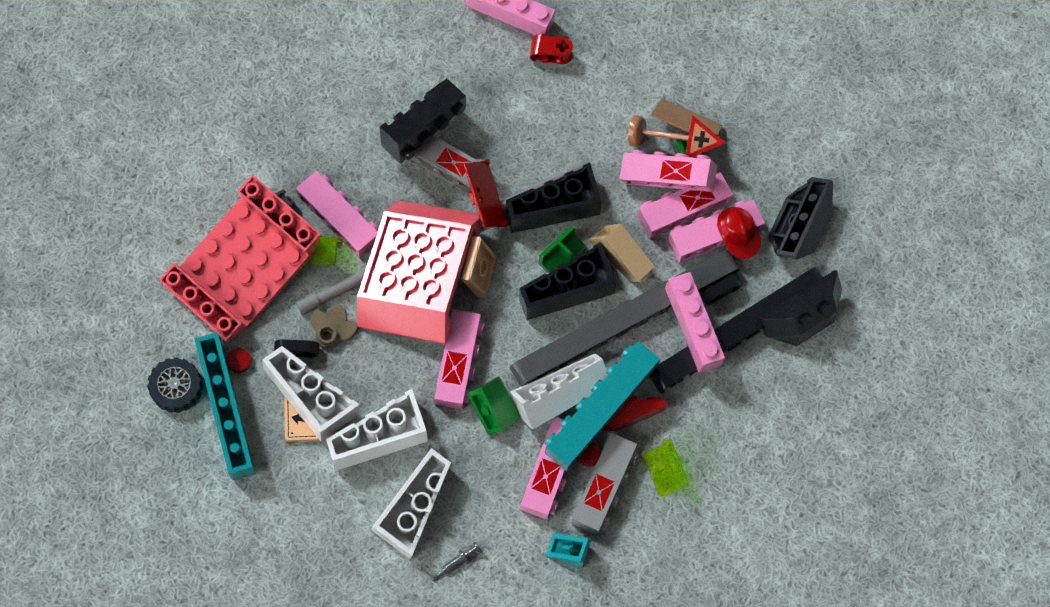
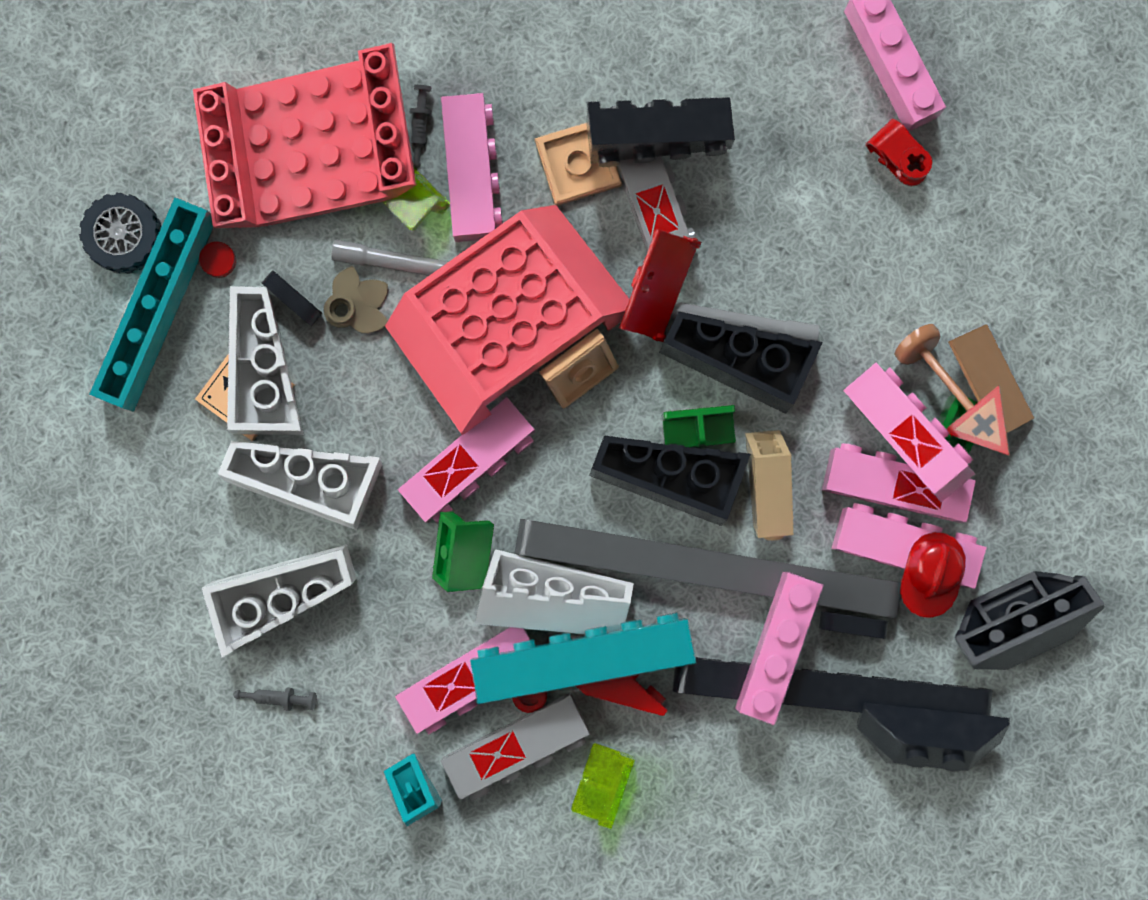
camera: 45 degrees right, 15 degrees up
(389, 175) = (568, 166): none -> light nougat tile

